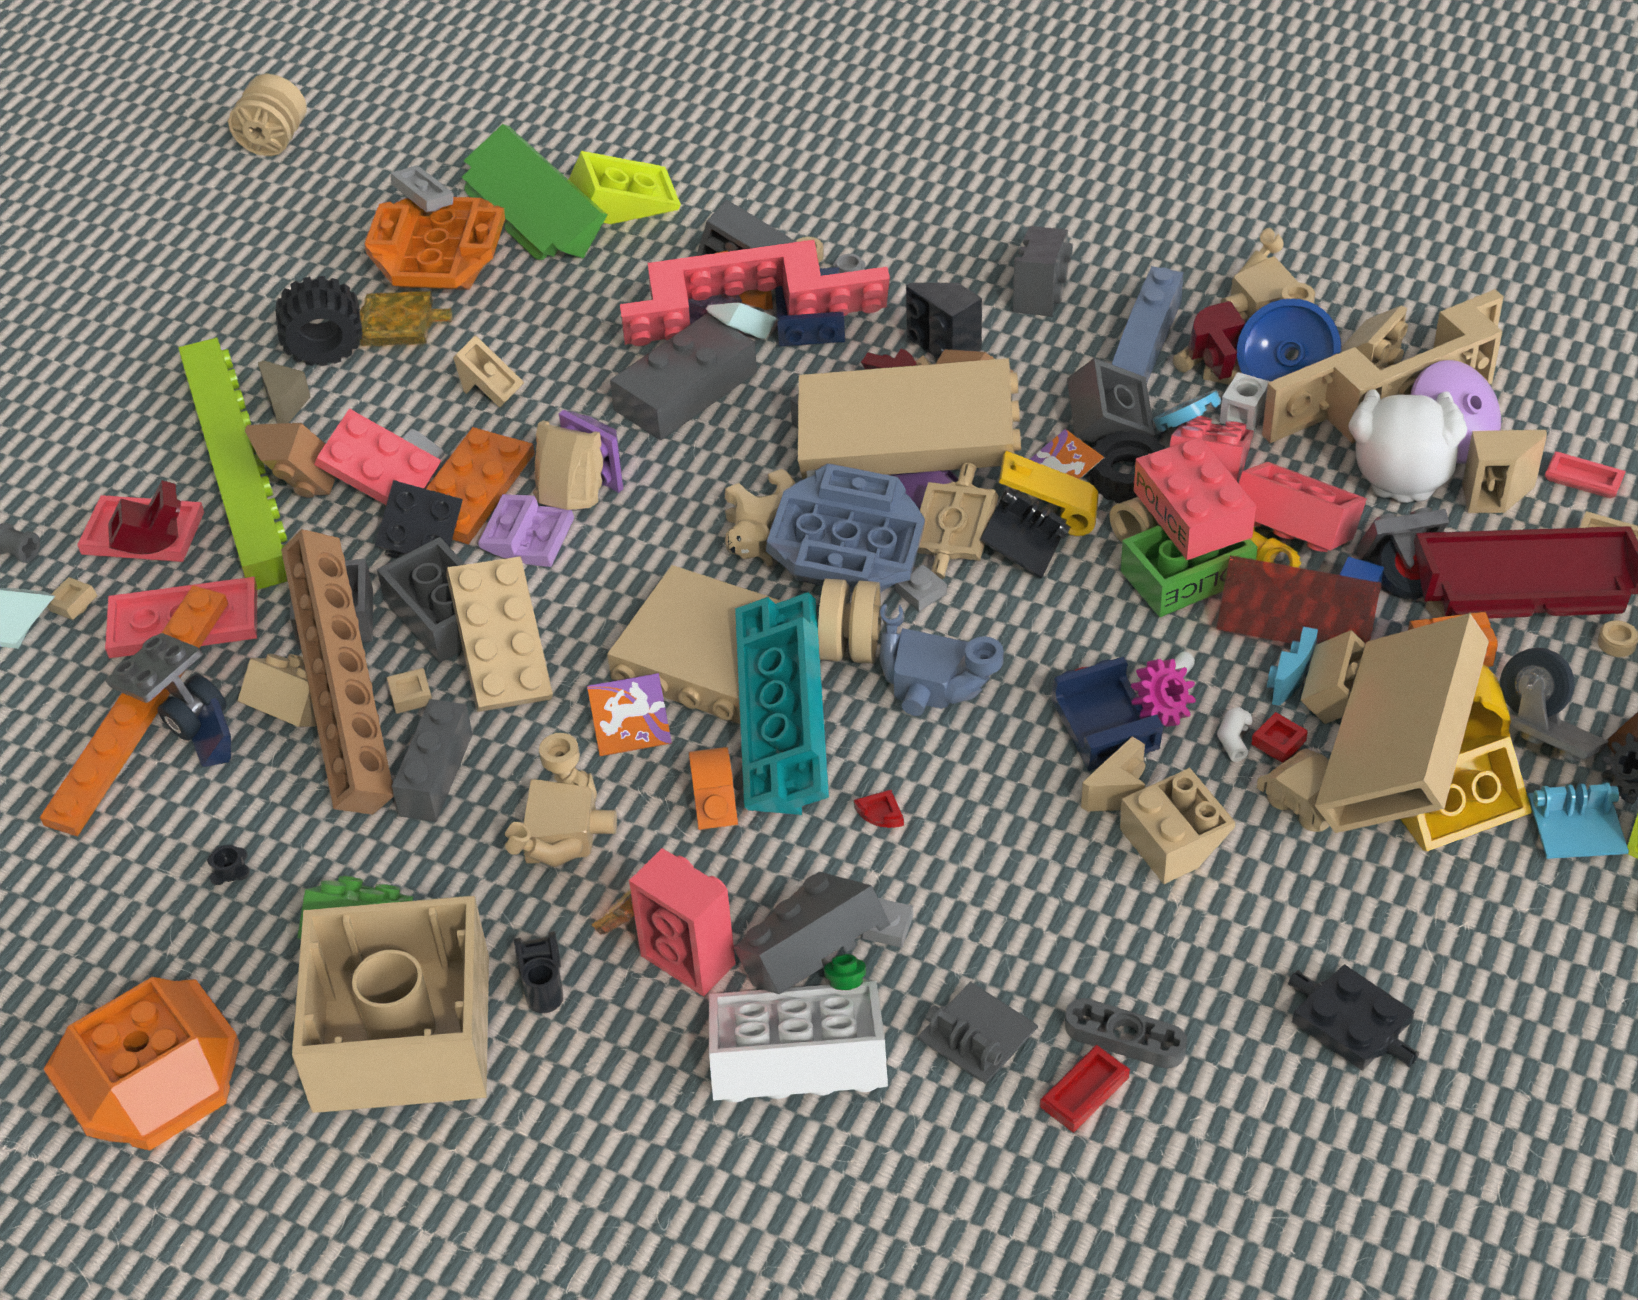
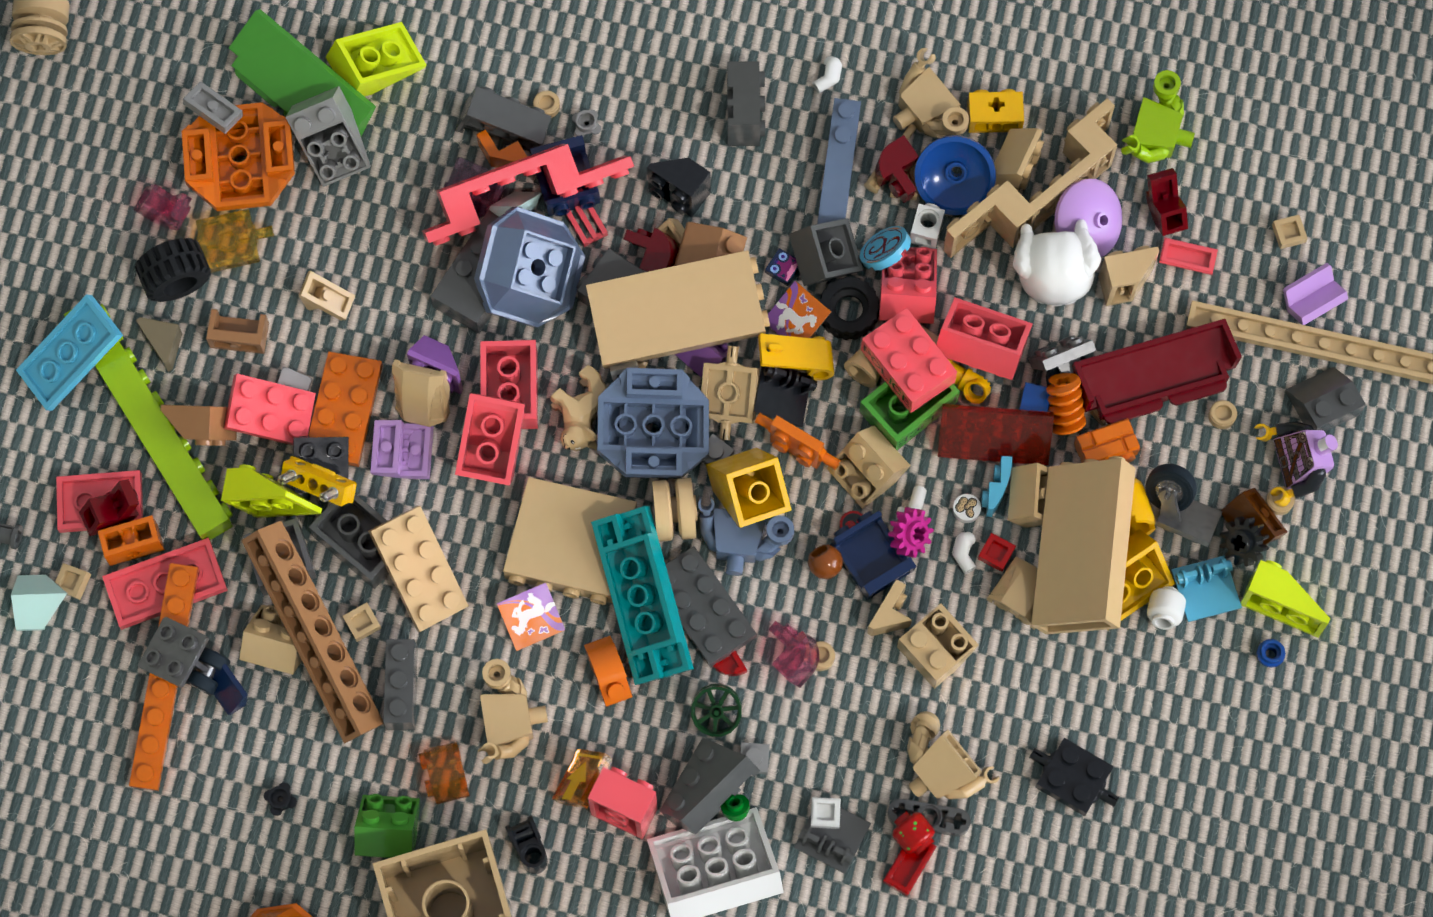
camera: 15 degrees left, 25 degrees up
(157, 562) = (131, 540): none -> orange brick
(167, 378) = (69, 352): none -> medium azure plate
(333, 266) = (163, 207): none -> clear pink brick
(343, 518) = (263, 496): none -> neon yellow slope
(372, 402) = (237, 333): none -> medium nougat panel
(403, 520) = (317, 481): none -> yellow piece
(455, 867) = (445, 773): none -> clear orange cylinder
(544, 232) = (329, 136): none -> light grey slope
(635, 515) = (490, 439): none -> coral slope
(678, 478) = (511, 374): none -> coral brick
(713, 383) = (506, 274): none -> sand blue piece
(810, 359) = (594, 237): none -> coral tile
(847, 845) = (716, 710): none -> dark green wheel
(866, 743) = (707, 609): none -> dark grey plate
(955, 600) = (749, 486): none -> yellow slope
(973, 998) = (825, 813): none -> white tile
(976, 806) = (799, 658): none -> clear pink brick
(1010, 820) = (826, 656): none -> tan tile
(1030, 576) = (791, 439): none -> orange plate
(1039, 712) = (825, 562): none -> dark orange piece
(1052, 421) = (782, 267): none -> tile
(1097, 1036) = (913, 833): none -> red head
(1120, 619) = (868, 466): none -> tan slope
(1155, 256) = (831, 75): none -> white arm
(1160, 963) = (945, 765): none -> tan torso
(1246, 688) = (966, 508): none -> tile
(1351, 305) = (984, 118): none -> yellow brick
(1400, 583) = (1066, 403): none -> orange piece
(1516, 831) = (1166, 607): none -> white head
(1558, 345) = (1159, 123): none -> lime torso
(1559, 409) = (1164, 202): none -> dark red brick

